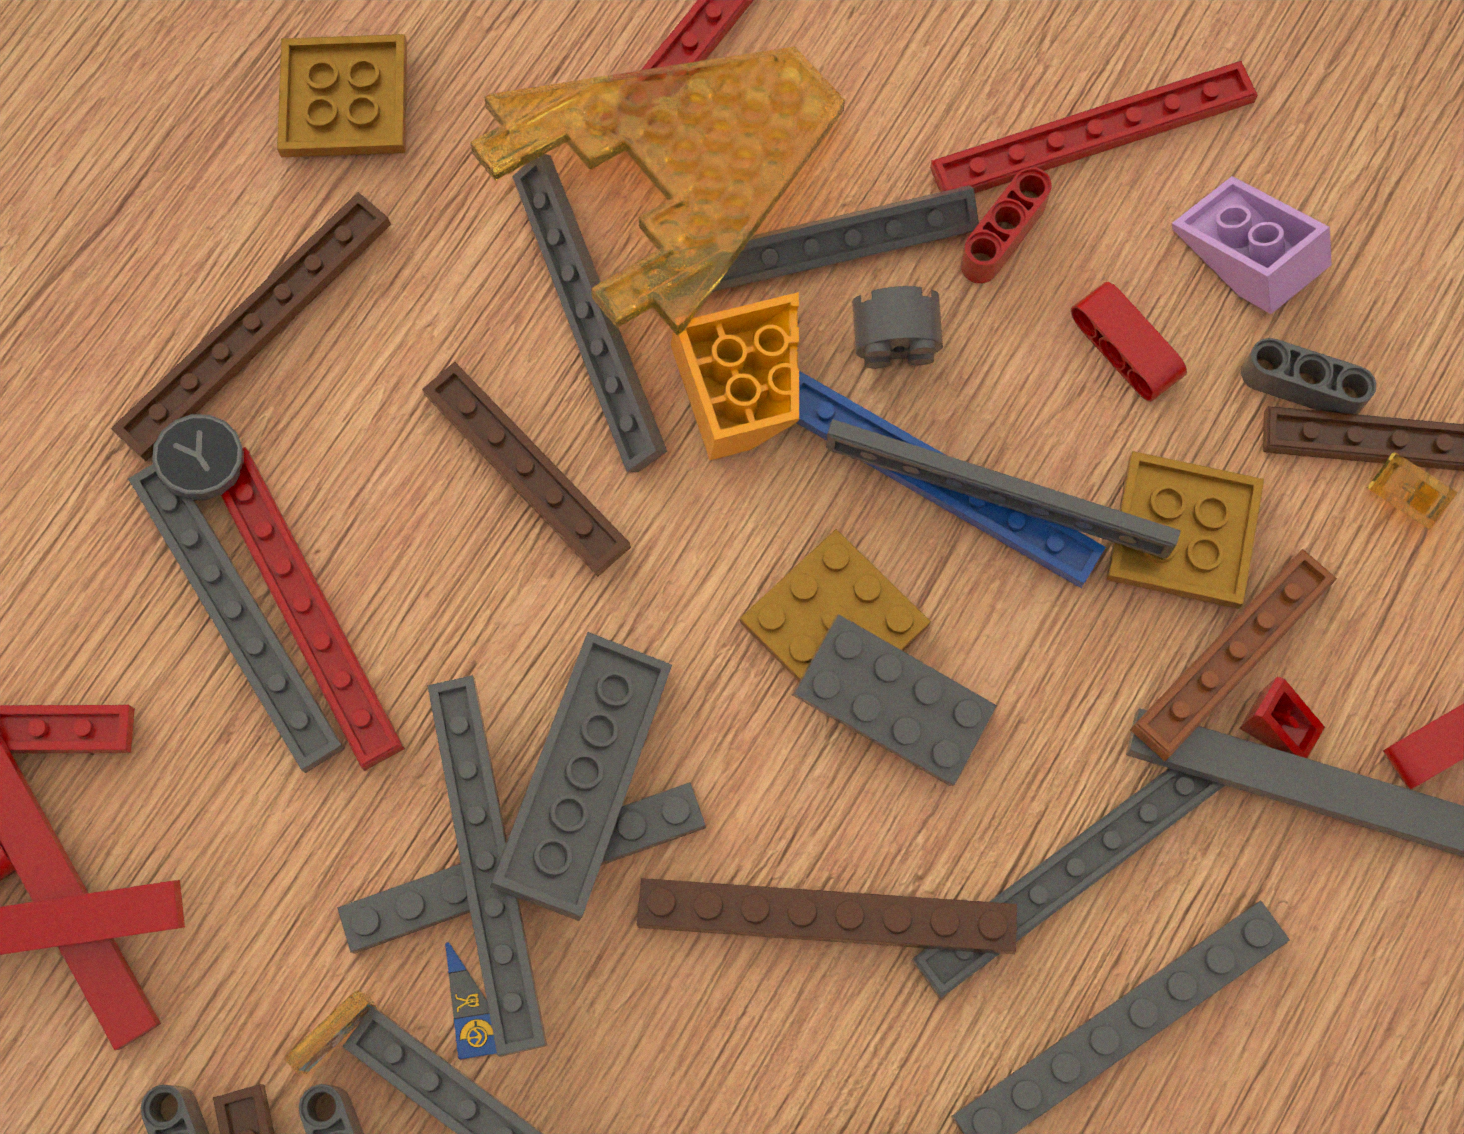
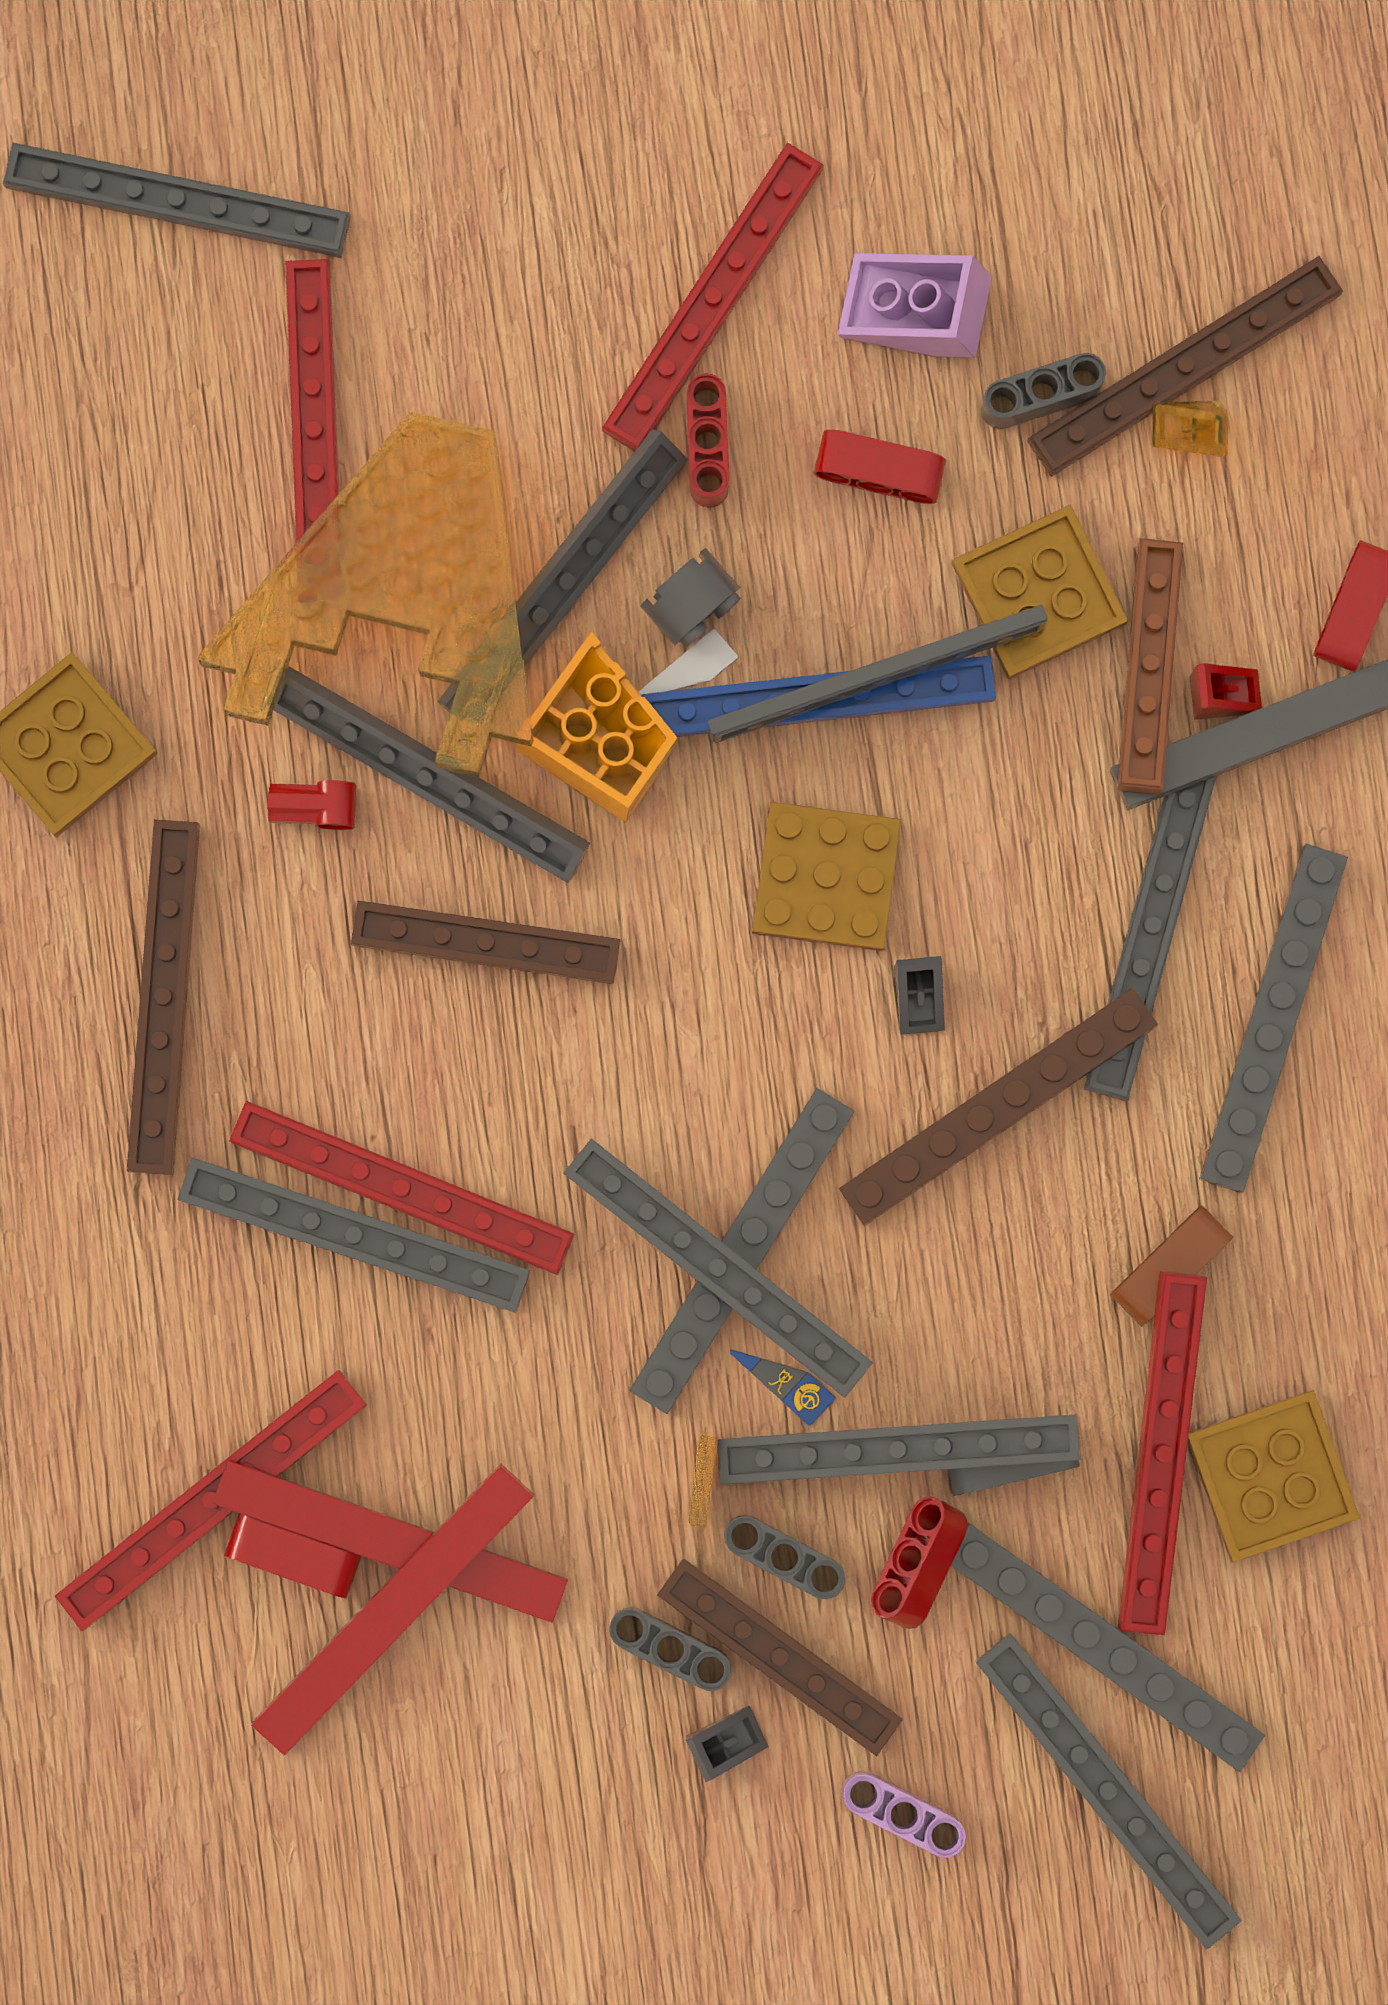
camera: 40 degrees left, 10 degrees up
(198, 456) = (221, 1138): black tile -> none
(491, 276) = (327, 804): none -> red piece
(581, 777) = (736, 1146): dark grey plate -> none
(834, 771) = (919, 995): none -> dark grey slope
(864, 387) = (695, 666): none -> white sticker
(894, 700) = (922, 903): dark grey plate -> none

